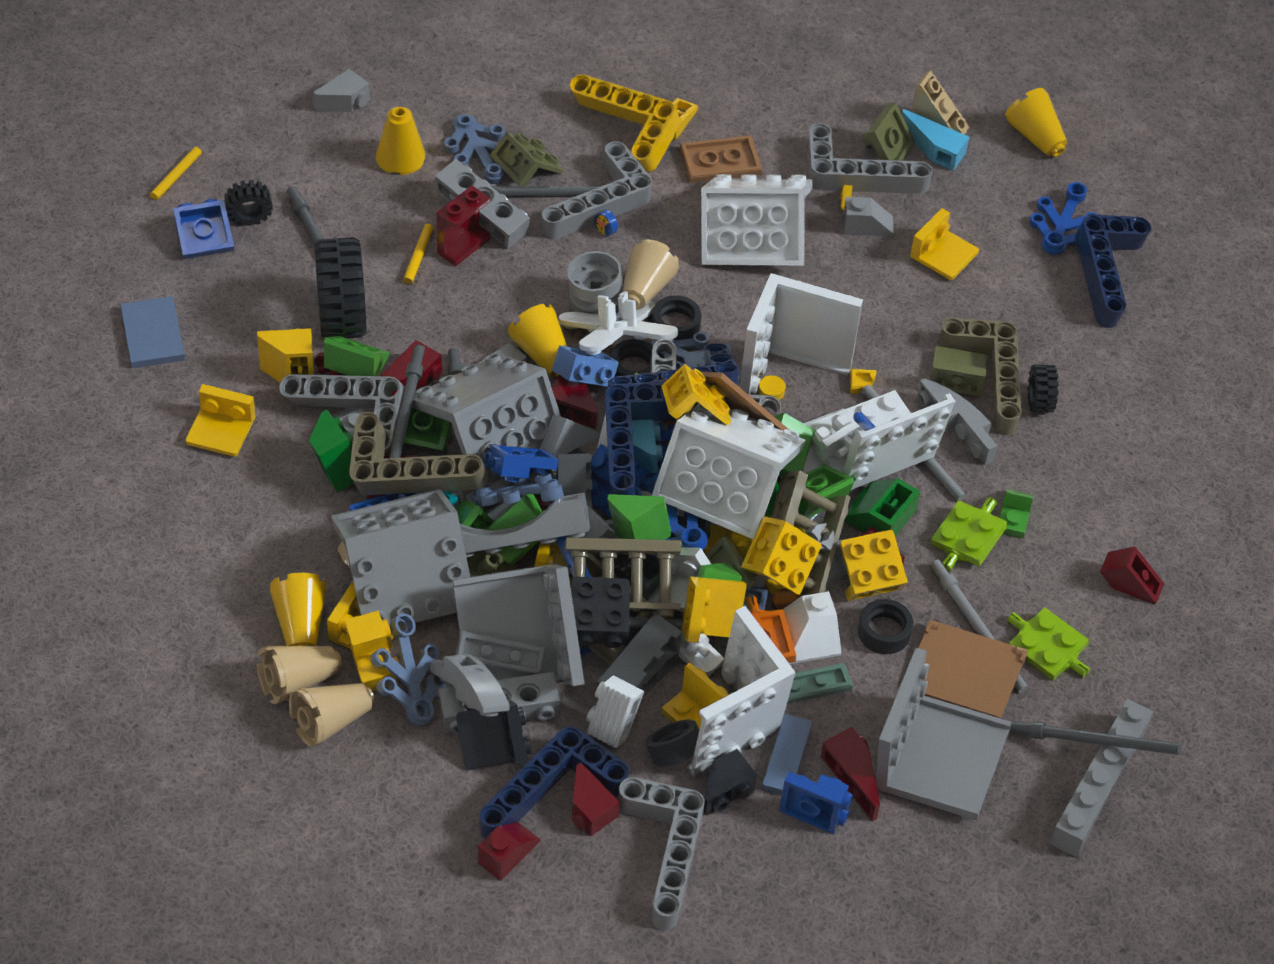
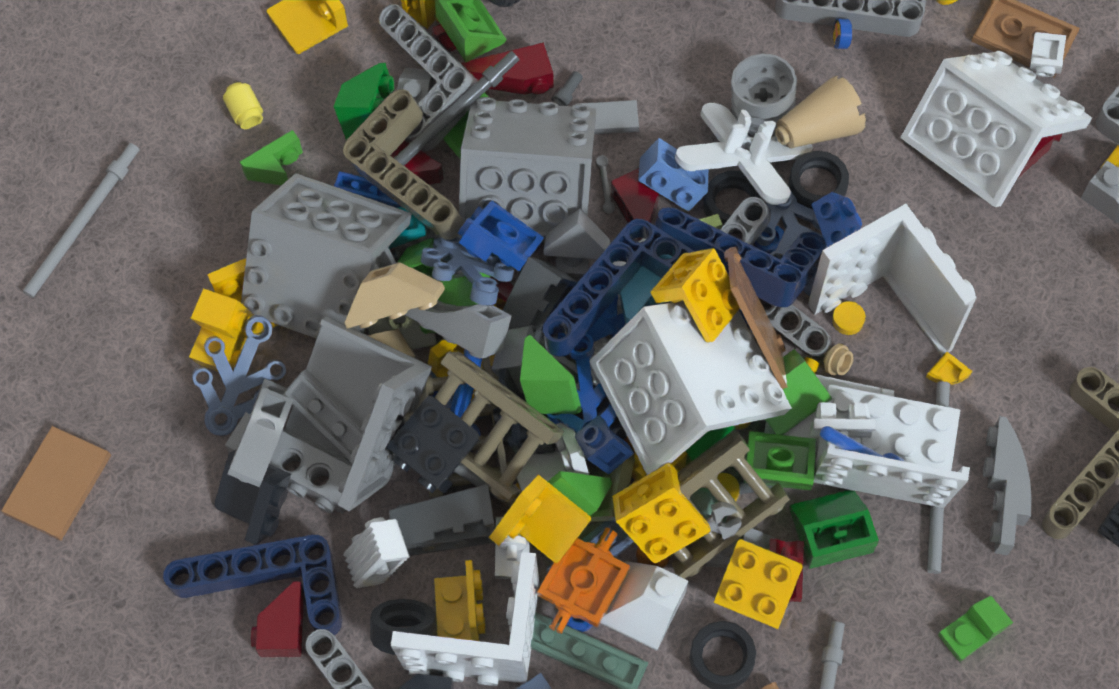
camera: 45 degrees right, 15 degrees up
(177, 612) = (115, 172): none -> light grey bar
(231, 510) = (243, 105): none -> light yellow brick
(292, 532) = (267, 162): none -> bright green slope
(294, 668) = (150, 301): tan cone -> none
(299, 607) = (202, 248): yellow cone -> none
(328, 709) = (144, 362): tan cone -> none
(338, 830) = (56, 483): none -> medium nougat tile
(489, 532) = (392, 293): none -> tan slope
(505, 848) = (172, 612): dark red slope -> none
(539, 335) = (664, 112): yellow cone -> none
(709, 536) = (602, 445): none -> dark blue bracket
(717, 326) = (836, 217): none -> blue plate
(750, 158) = (1047, 54): none -> white bracket
(792, 410) = (838, 360): none -> tan plate
(959, 370) = (1059, 430): olive bracket -> none
(969, 533) = (901, 618): lime plate -> none

